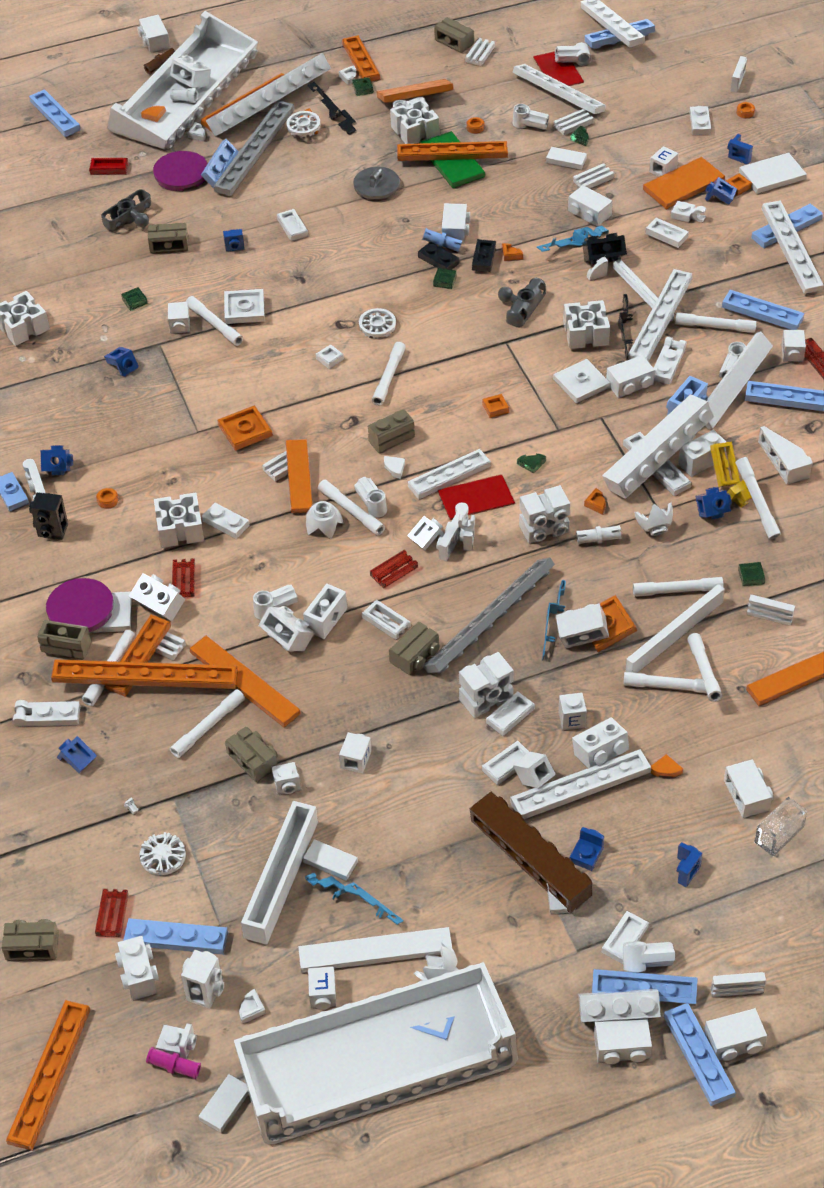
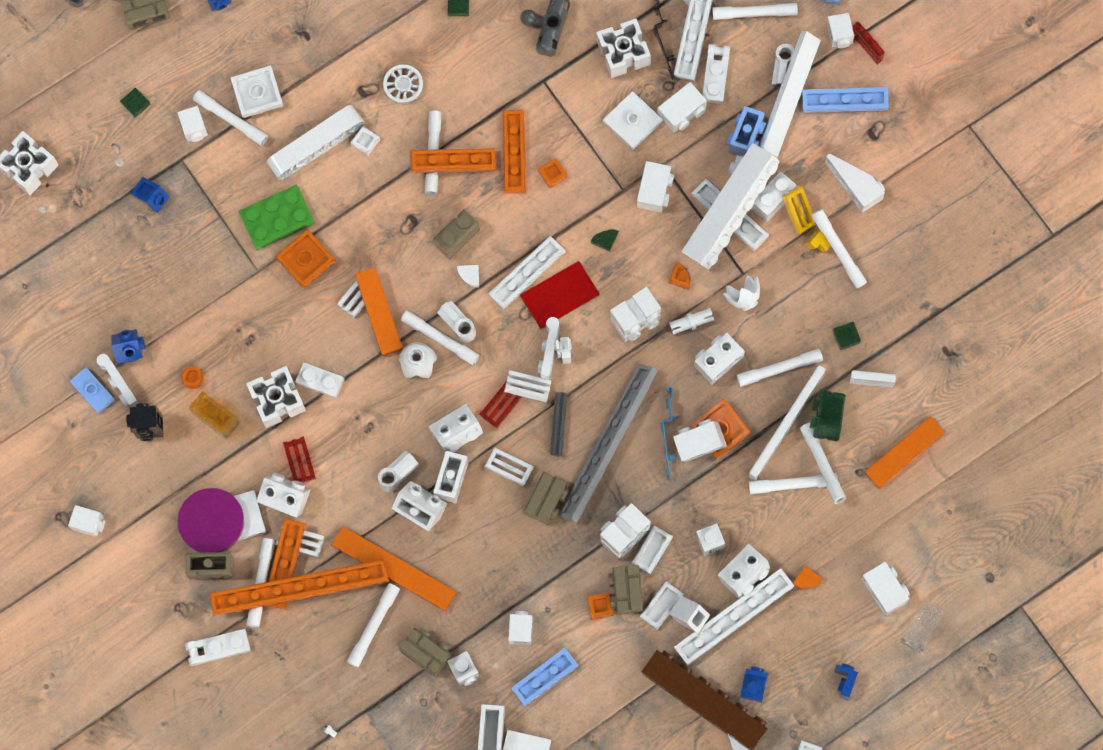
camera: 10 degrees left, 25 degrees up
(76, 754) = (261, 688): blue bracket -> none
(115, 523) = (214, 415): none -> clear yellow brick
(229, 395) = (276, 217): none -> bright green plate
(283, 348) = (315, 142): none -> white beam
(344, 574) = (456, 429): none -> white brick
(367, 800) = (544, 677): none -> light blue plate
(405, 378) = (452, 160): none -> orange tile
(423, 556) = (527, 382): none -> white tile
(426, 532) = (523, 355): white bracket -> none
(443, 751) = (600, 606): none -> orange tile
(445, 593) = (558, 424): none -> dark grey axle
(464, 385) = (514, 151): none -> orange tile
(475, 739) = (626, 589): none -> dark tan brick
(589, 428) = (654, 187): none -> white brick
(618, 565) = (718, 357): none -> white brick
(713, 503) = (796, 261): blue brick -> none
(718, 627) = (829, 415): none -> clear green brick

